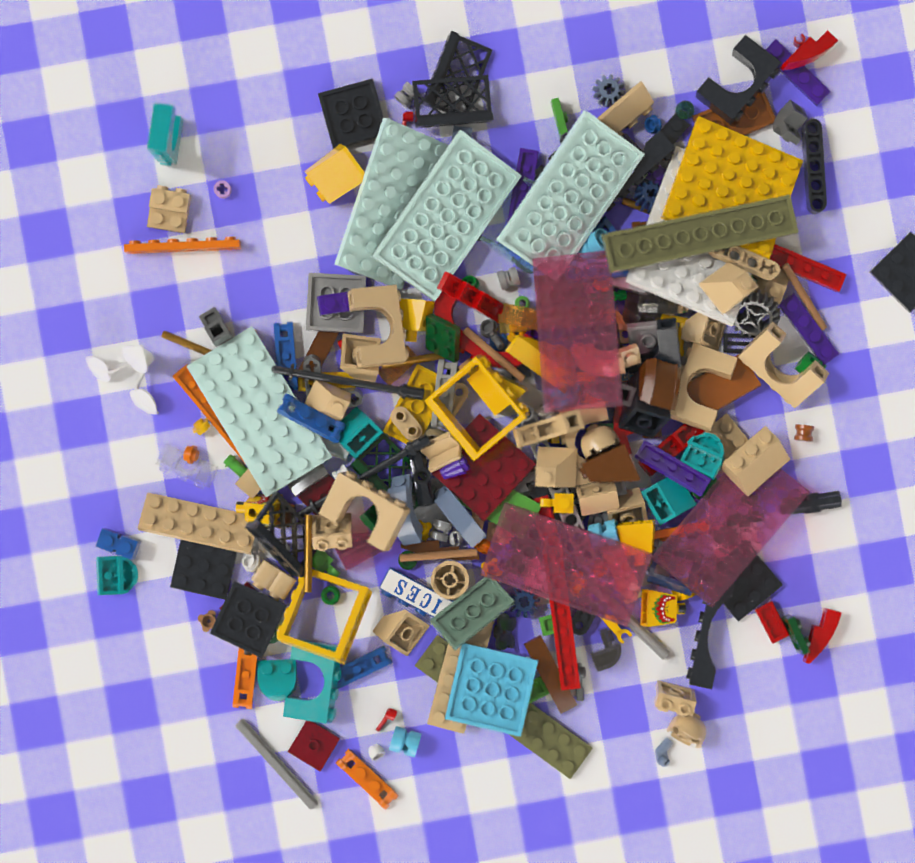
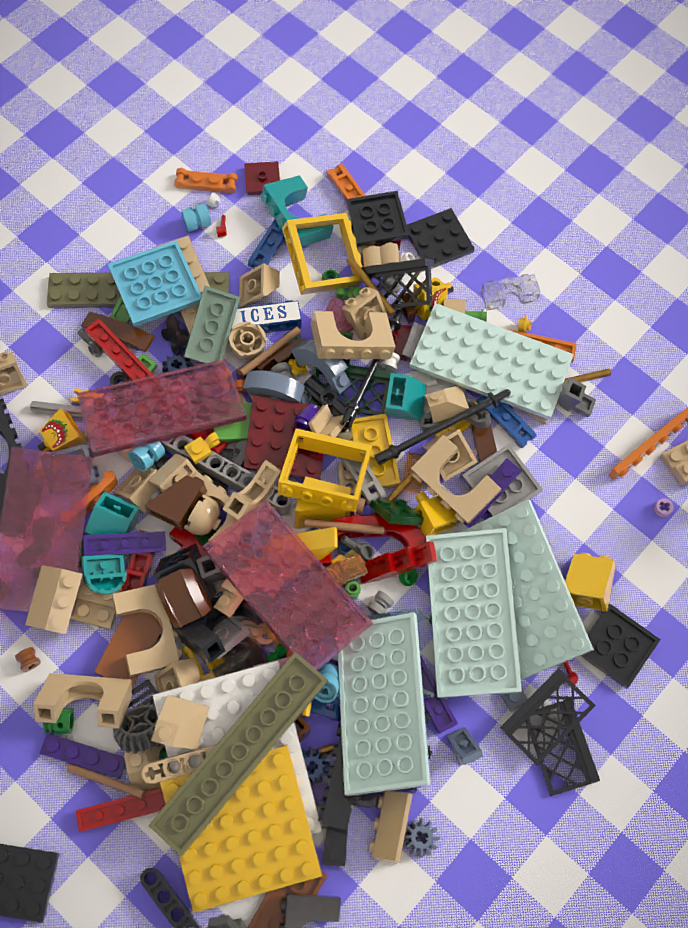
camera: 145 degrees right, 20 degrees down
(115, 575) = (496, 190): teal slope -> none
(124, 547) = (504, 209): blue piece -> none
(140, 360) = (608, 336): white plant -> none
(191, 454) = (514, 301): orange plate -> none
(196, 523) = (474, 256): tan plate -> none
(203, 620) = (406, 201): medium nougat plate -> none
(275, 762) = (279, 150): light grey axle -> none
(277, 678) = (324, 199): teal slope -> none
(311, 418) = (449, 377): blue plate -> none
(405, 96) = (591, 692): light grey wheel -> none
(406, 423) = (372, 431): tan plate -> none
(528, 127) = (464, 746): none -> sand blue slope
(556, 467) = (224, 470): tan slope -> none
(560, 116) = (445, 779): bright green plate -> none
(609, 655) = (81, 373): clear smoke brick -> none
(638, 534) = (117, 469): yellow torso -> none
(653, 124) = (357, 837): blue plate -> none
(688, 107) = (341, 880): plate -> none

